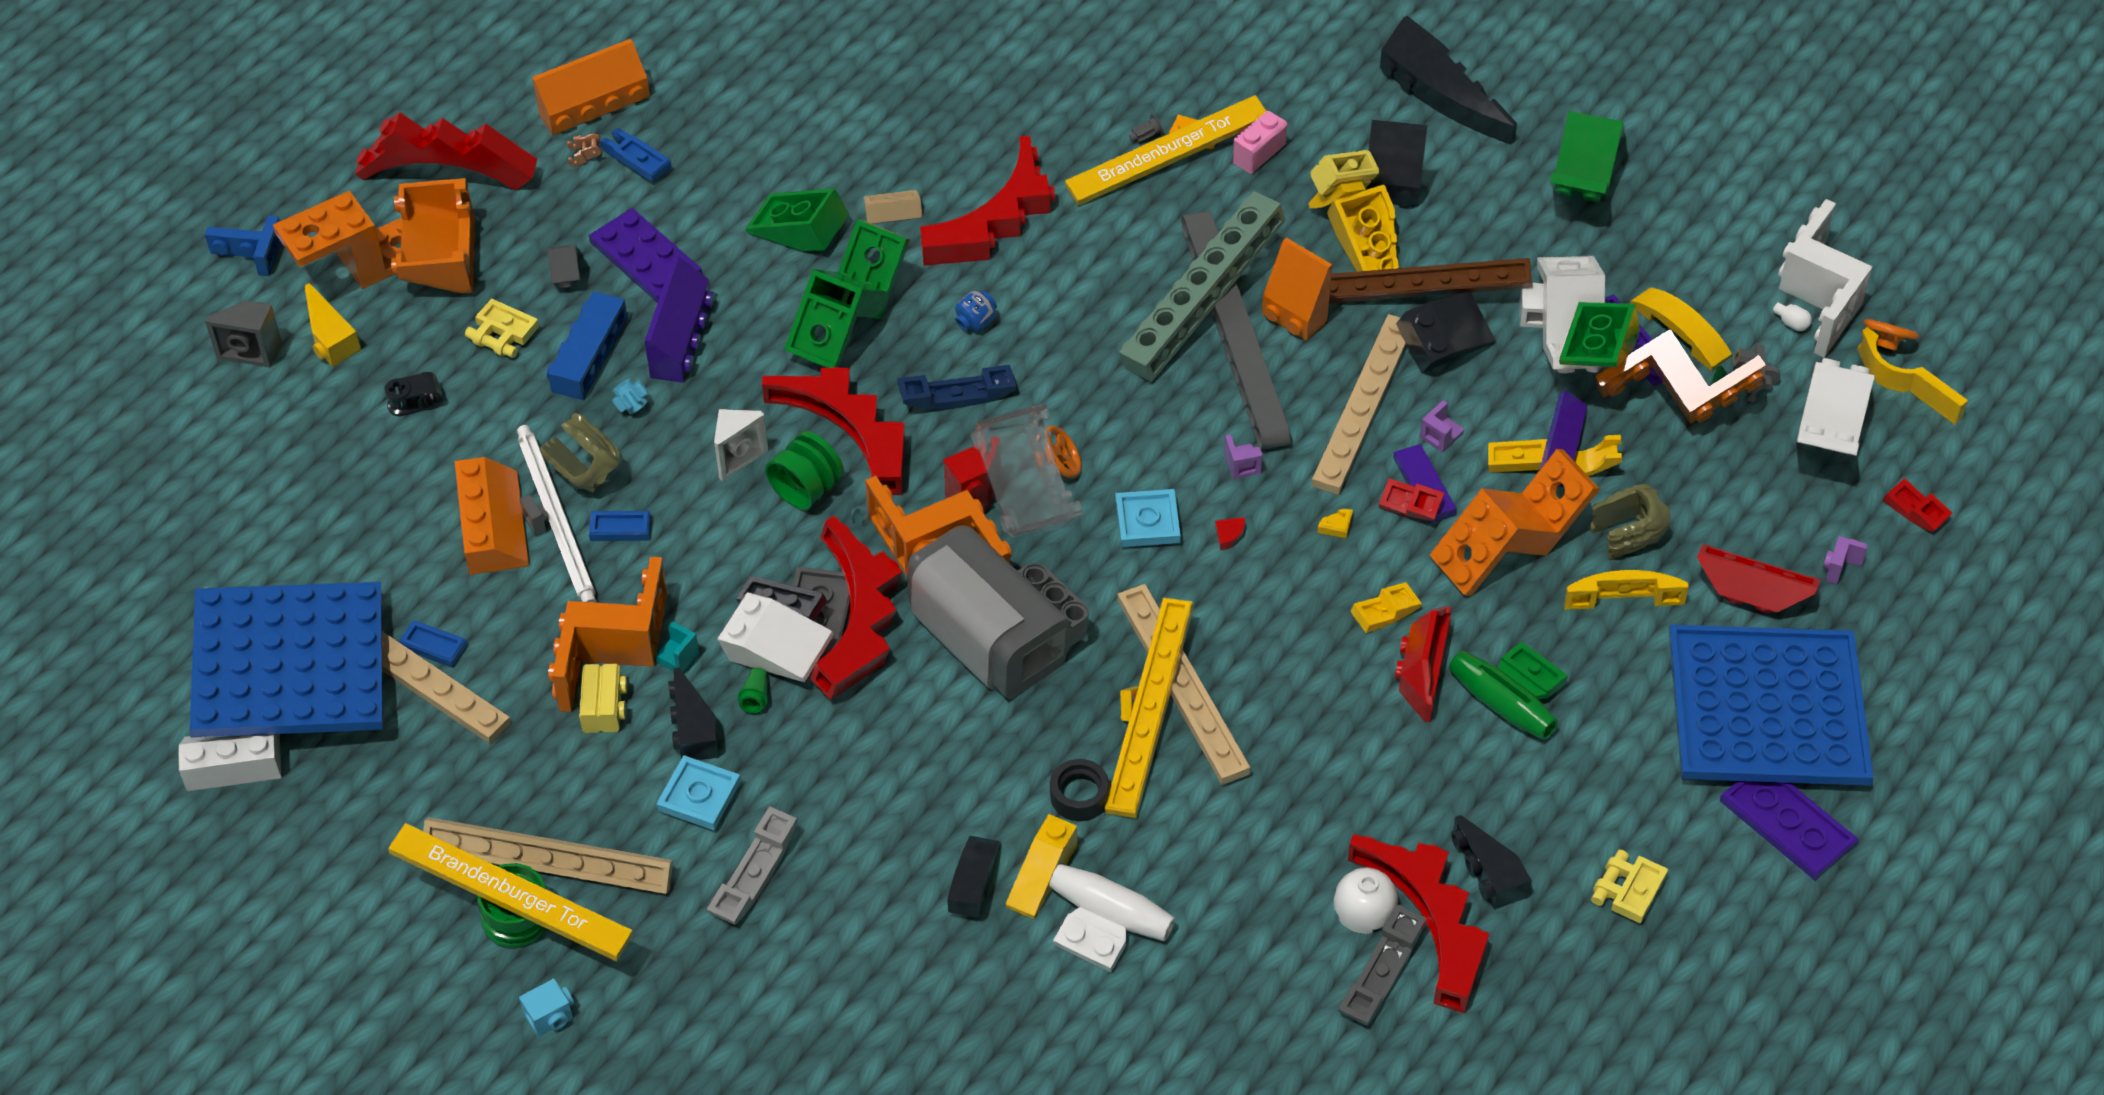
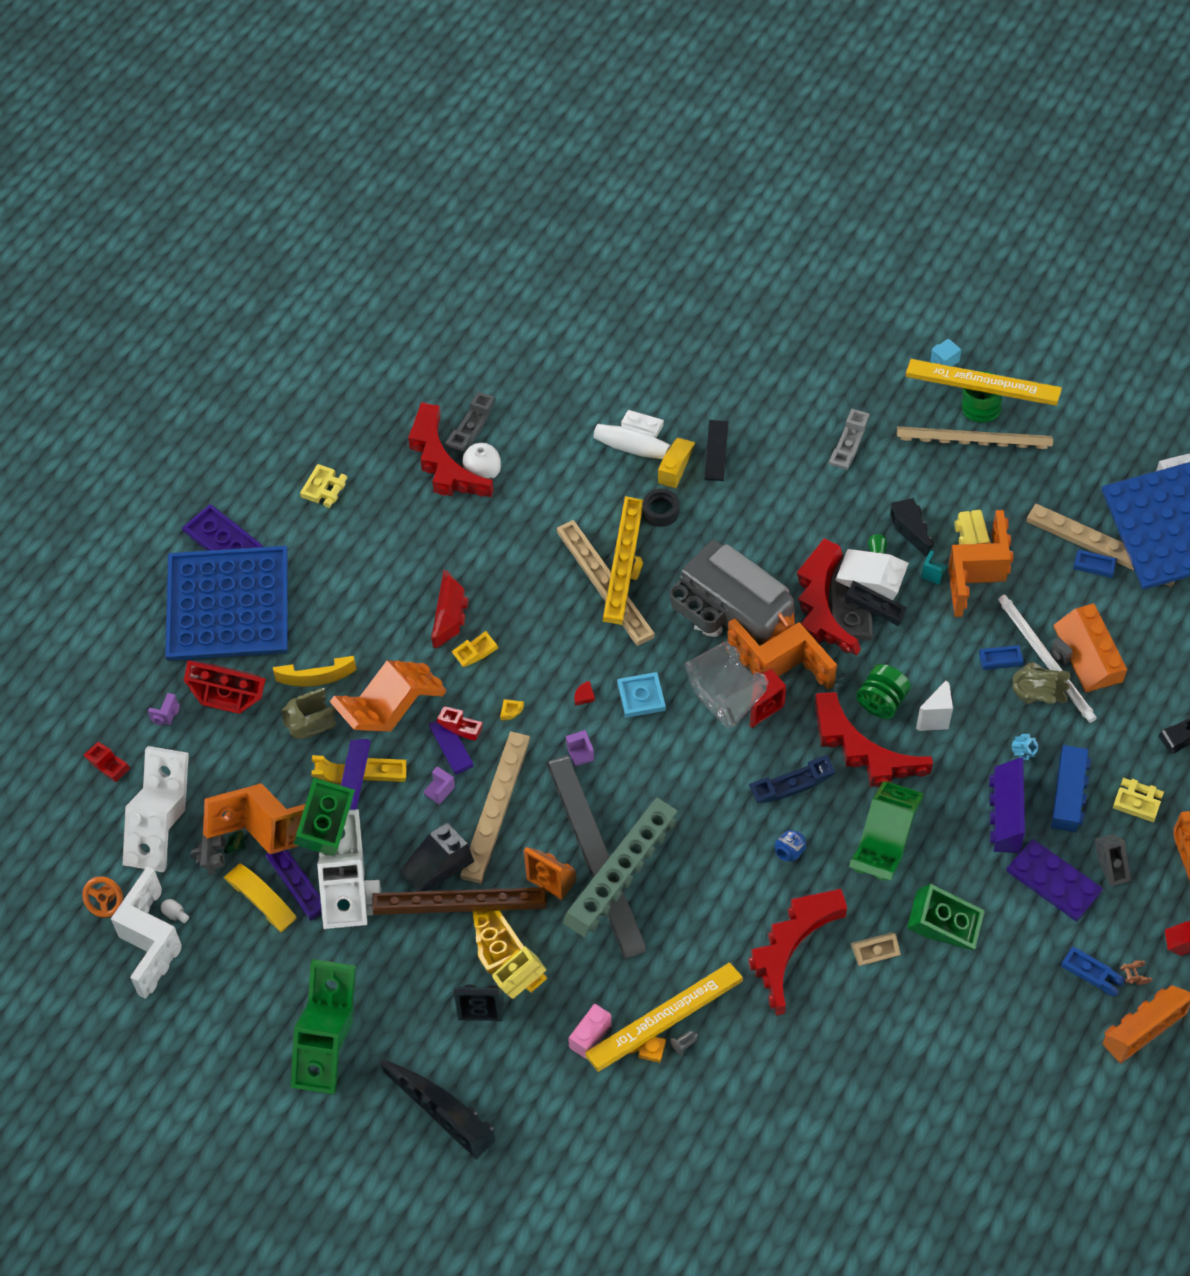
camera: 175 degrees right, 5 degrees up
(698, 792) = (894, 482): medium azure plate -> none
(1061, 453) = (711, 732): orange piece -> none
(1496, 867) = (404, 486): black slope -> none
(1514, 686) = (391, 598): green plate -> none
(1917, 380) = (93, 859): yellow piece -> none

